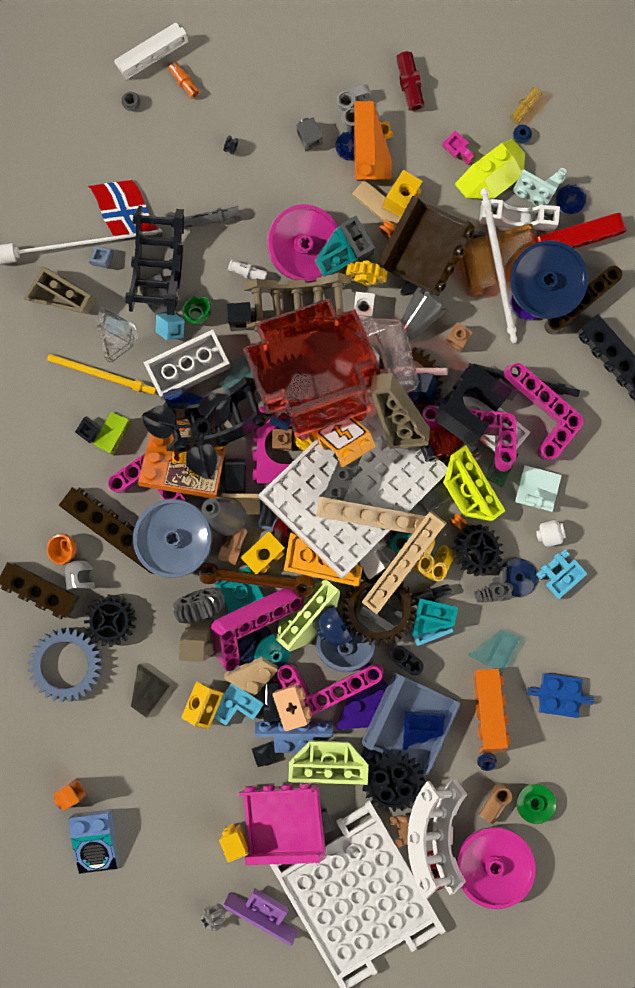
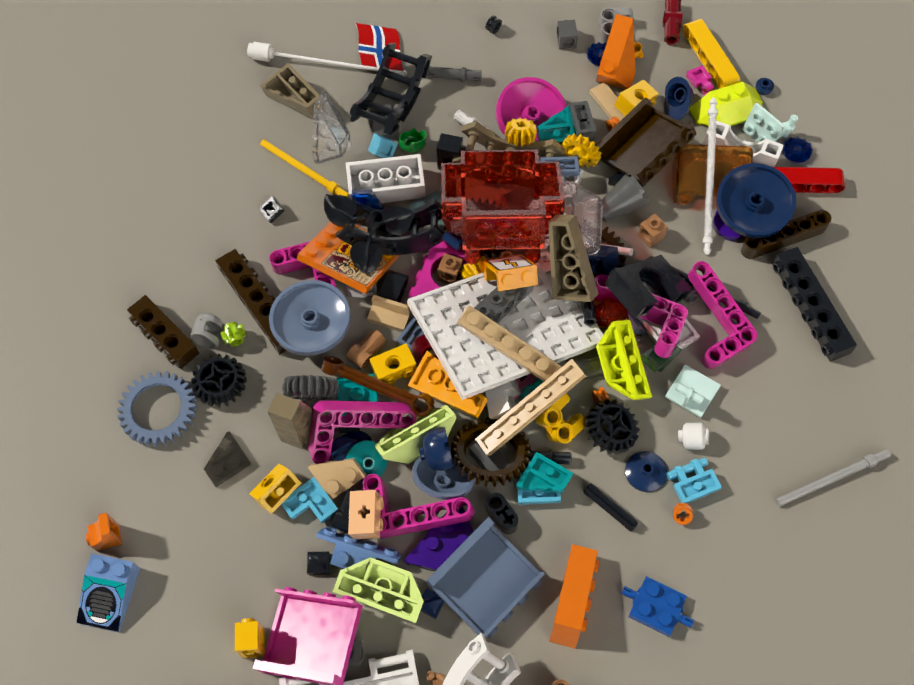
camera: 20 degrees right, 20 degrees down
(61, 549) = (201, 301): orange piece -> none
(101, 257) = (344, 77): sand blue tile -> none
(105, 571) = (233, 334): none -> lime gear
(112, 433) = (293, 220): lime panel -> none
(224, 515) = (367, 311): dark grey cone -> none
(302, 274) = (520, 132): none -> yellow gear
(362, 287) = (566, 170): none -> sand blue tile
(410, 776) = (425, 632): black gear -> none
(421, 727) = (494, 585): clear blue wing -> none
(442, 179) = (677, 97): none -> dark blue piece
(460, 114) = (710, 54): none -> yellow beam
(487, 761) = (554, 655): dark blue plate -> none
(496, 621) = (610, 507): none -> black axle
(496, 650) = (601, 535): clear light blue wing -> none
(497, 590) = (621, 474): dark grey piece -> none
(525, 105) = (774, 64): clear yellow pin -> none
(560, 603) = (688, 516): none -> orange bush

